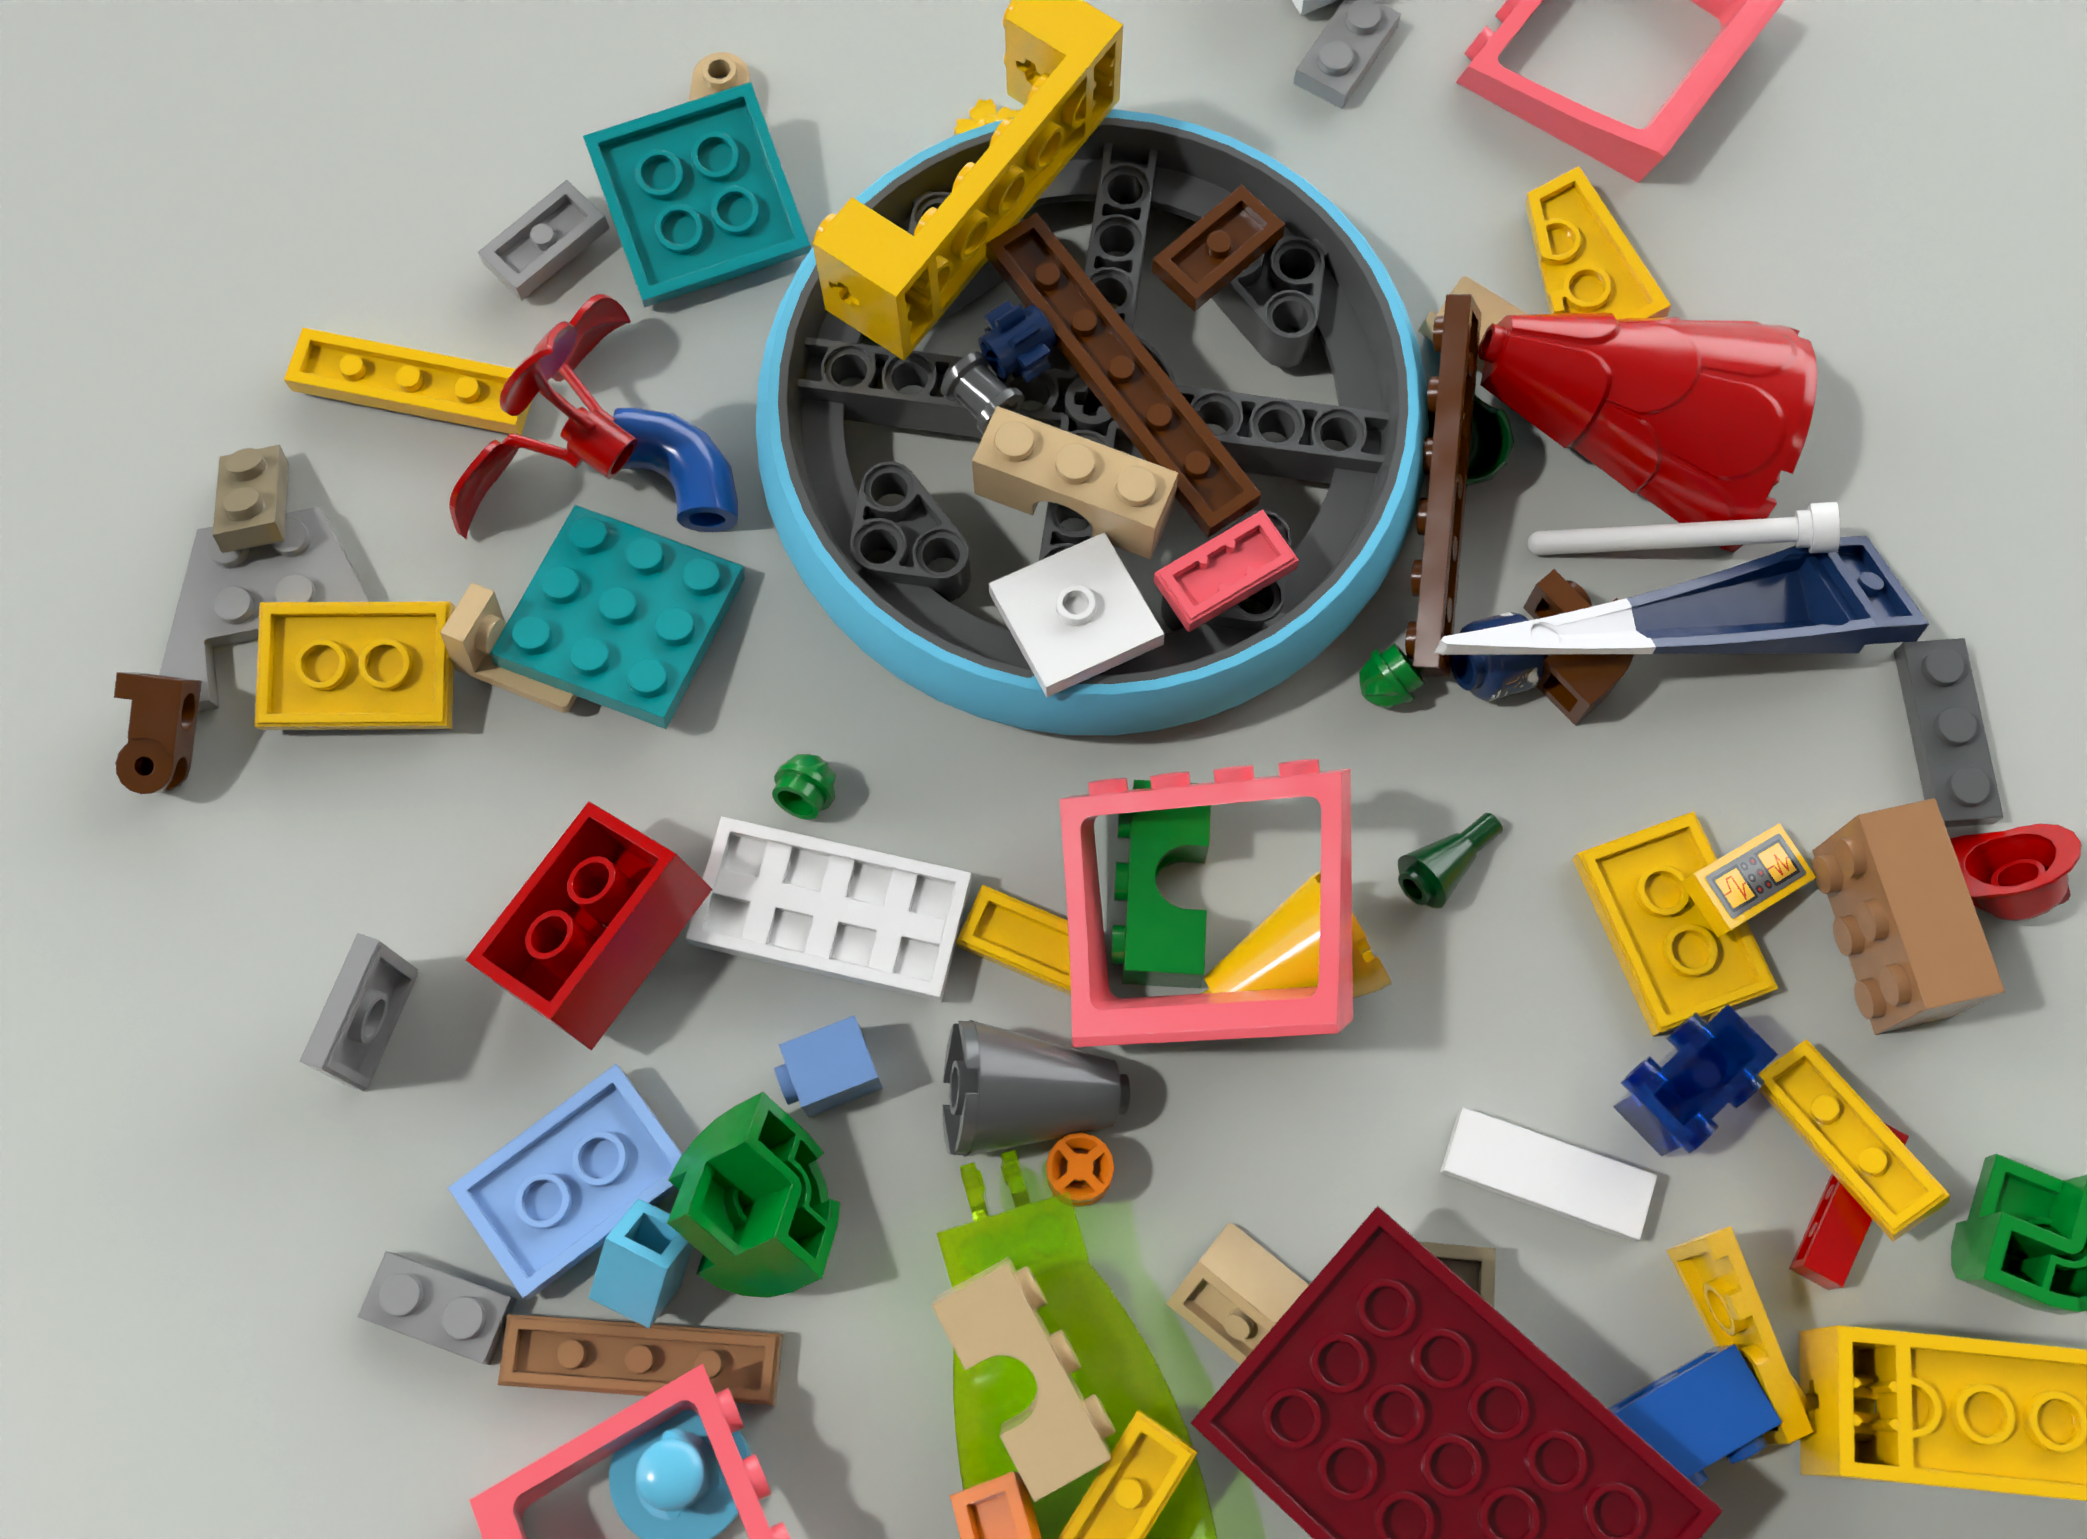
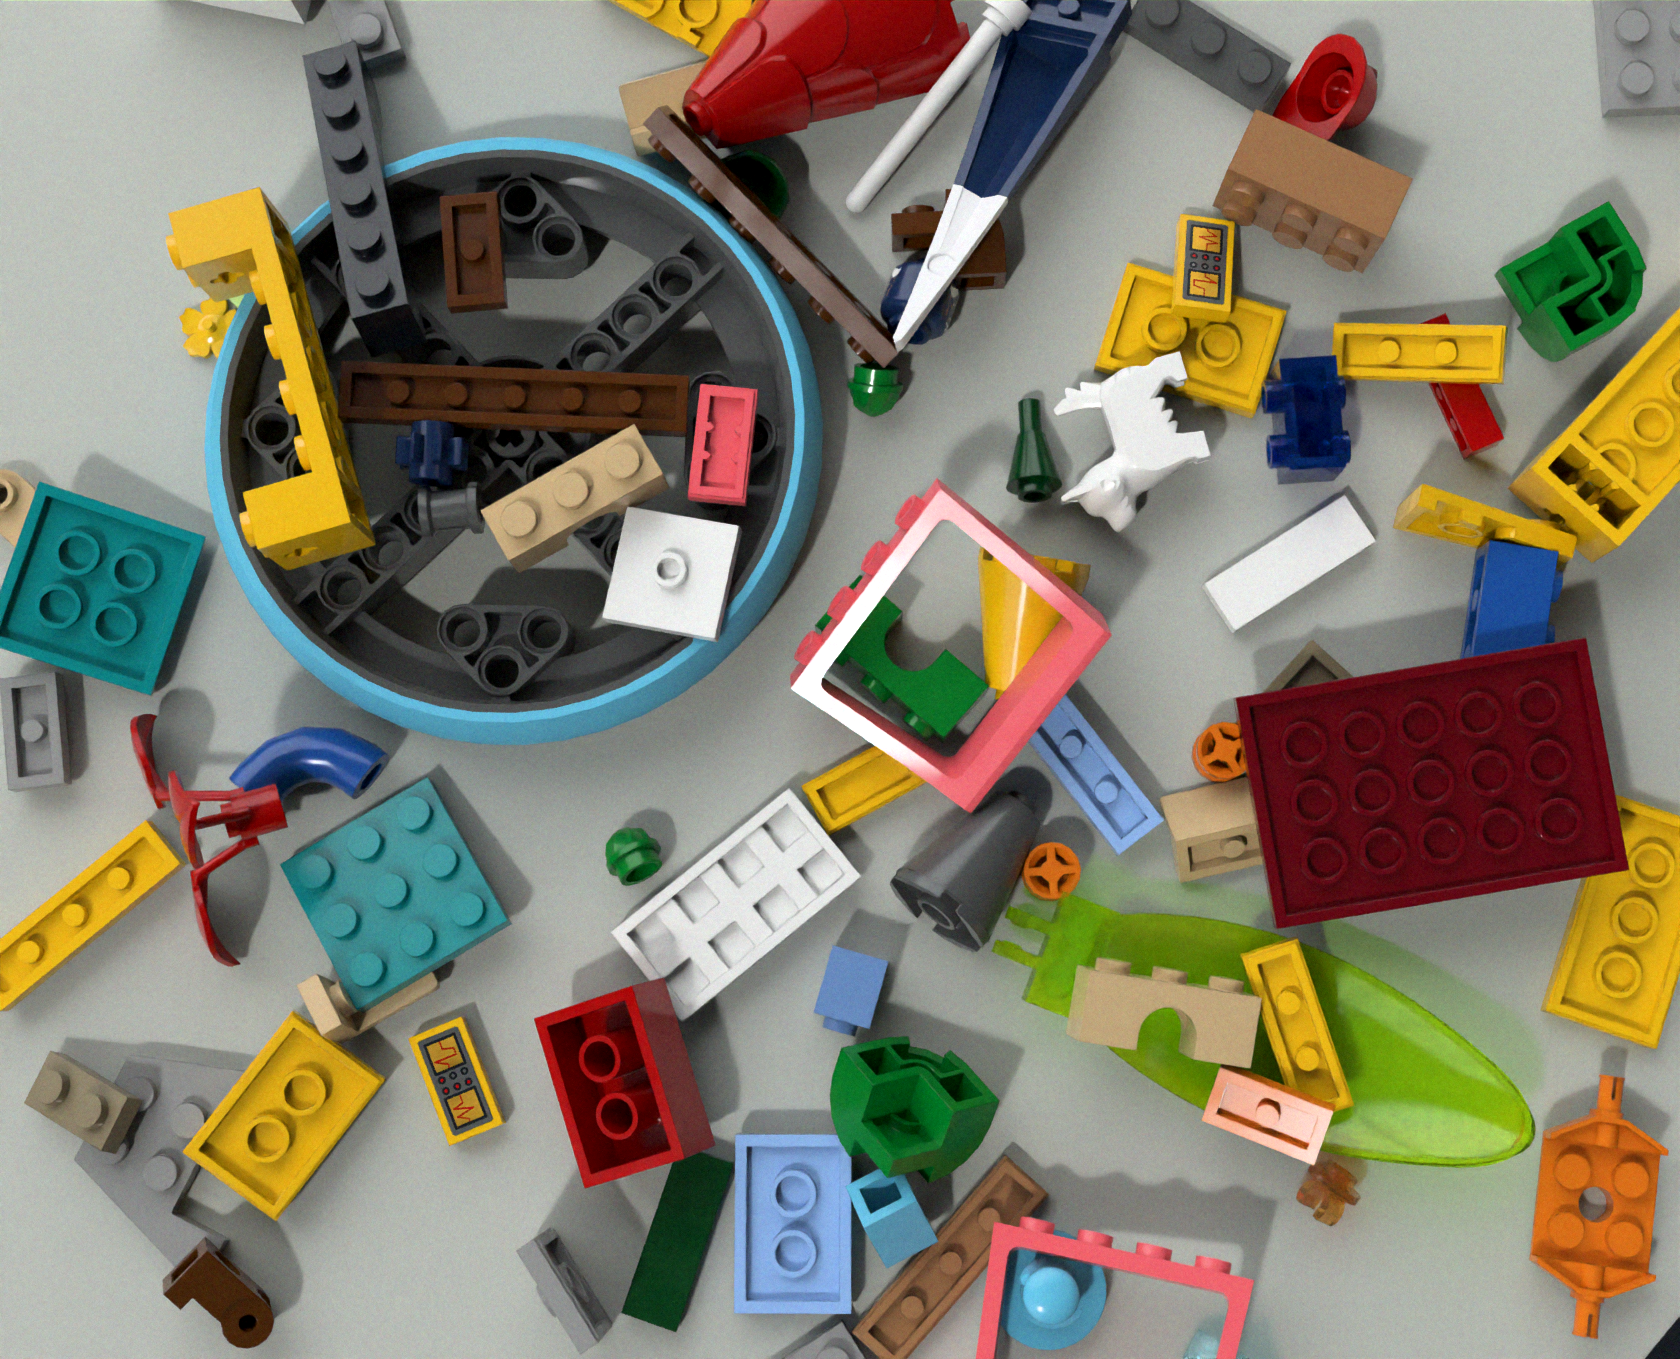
camera: 45 degrees left, 10 degrees up
(484, 1088) = (677, 1240): none -> dark green tile
(492, 789) = (457, 1080): none -> tile
(1135, 183) = (365, 225): none -> black arch
(1201, 1136) = (1094, 777): none -> light blue plate
(1321, 1243) = (1226, 749): none -> orange wheel
(1548, 942) = (1141, 434): none -> white animal

